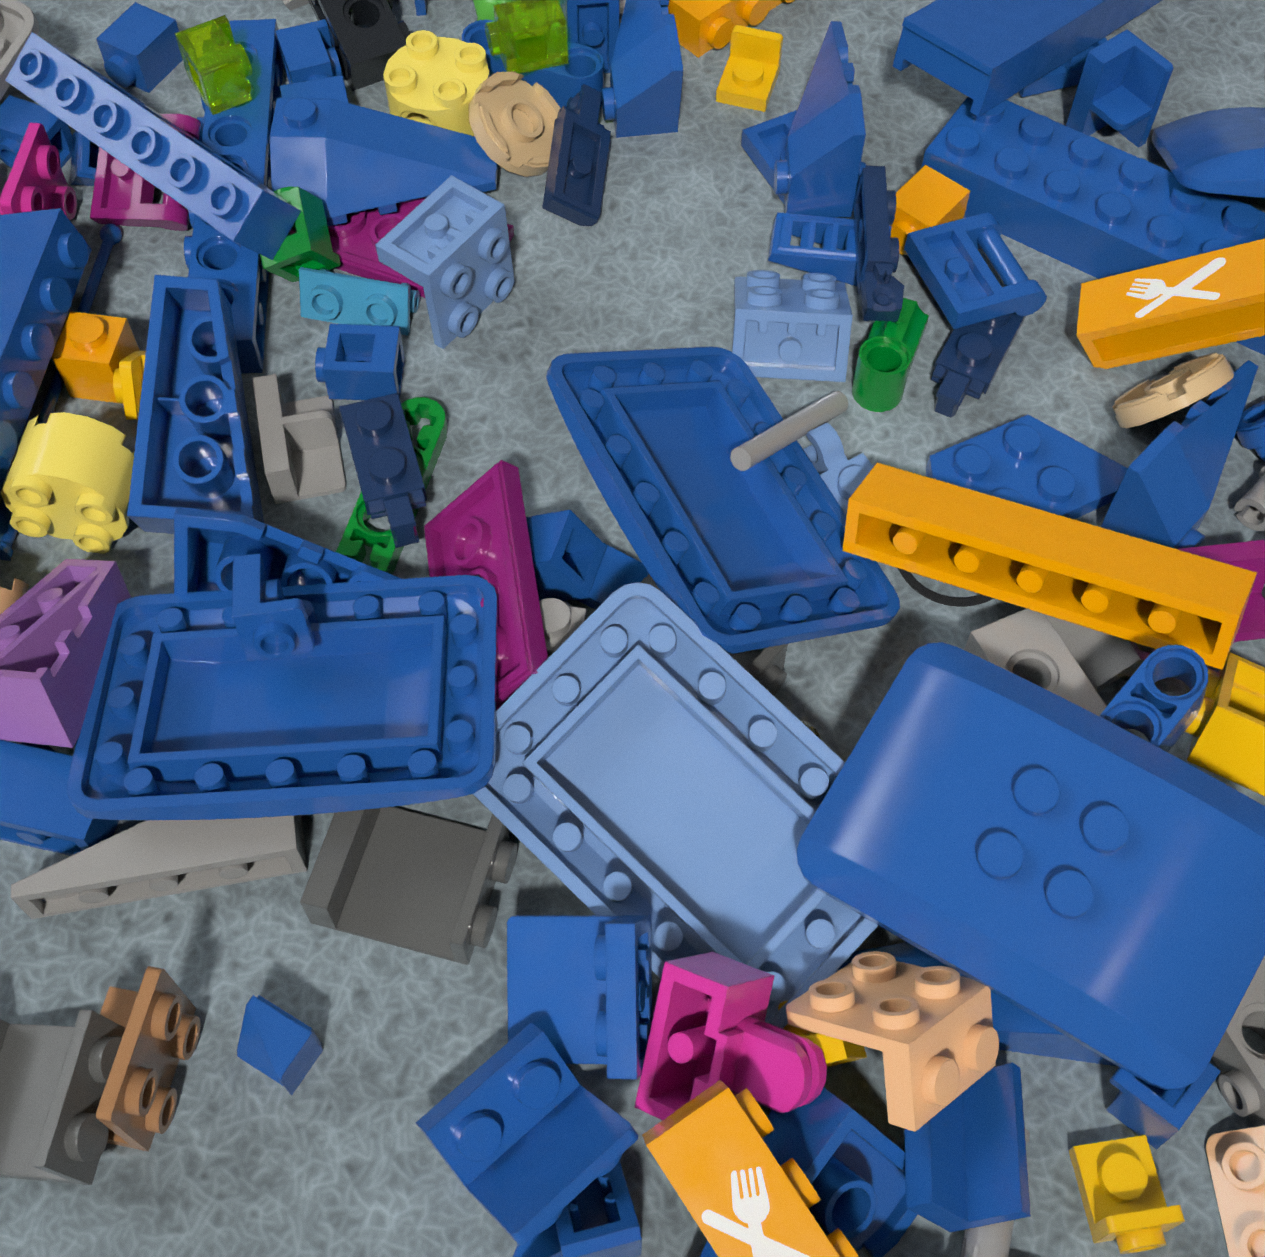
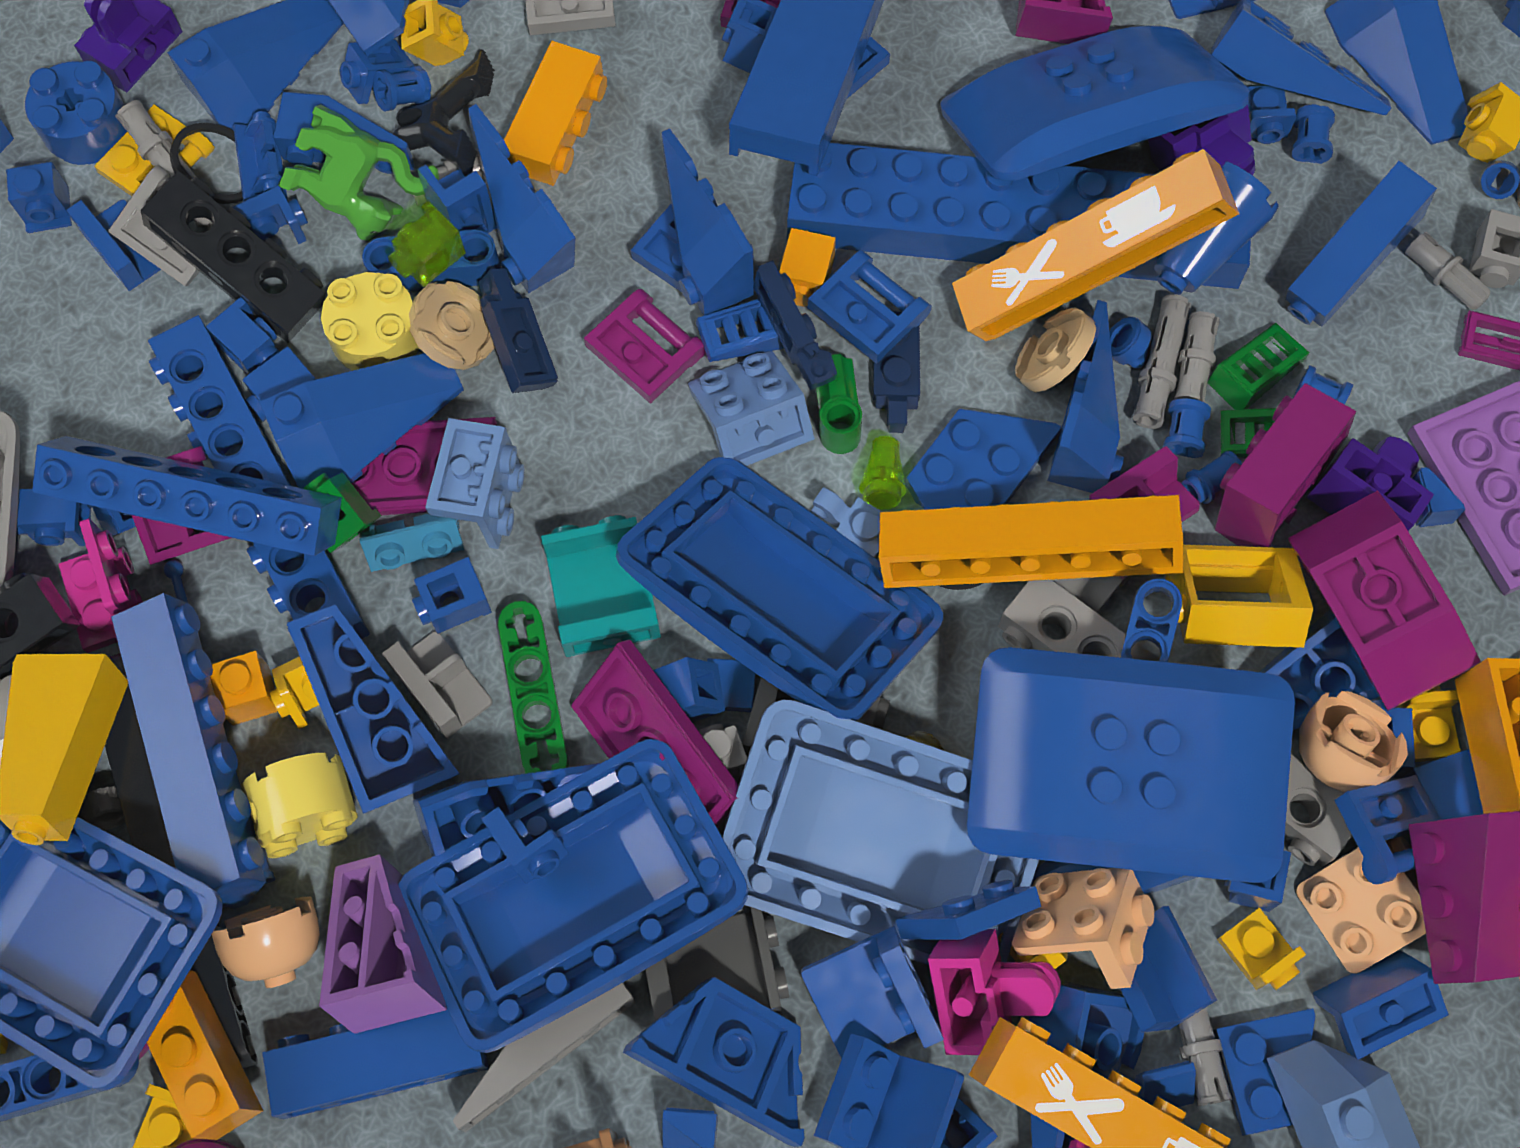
camera: 25 degrees left, 10 degrees up
(140, 48) = (92, 387): blue brick -> none
(216, 64) = (188, 391): clear neon green brick -> none
(371, 976) = (730, 1055): none -> blue wing
(386, 464) = (520, 673): dark blue hinge -> none
(516, 424) = (592, 592): none -> teal panel
(694, 228) = (637, 356): none -> magenta plate
(738, 934) = (970, 914): none -> blue wing
(750, 68) = (605, 185): yellow bracket -> none
(788, 431) = (800, 507): light grey bar -> none
(906, 439) = (883, 476): none -> clear neon green cone
(1120, 88) = (907, 93): blue panel -> none

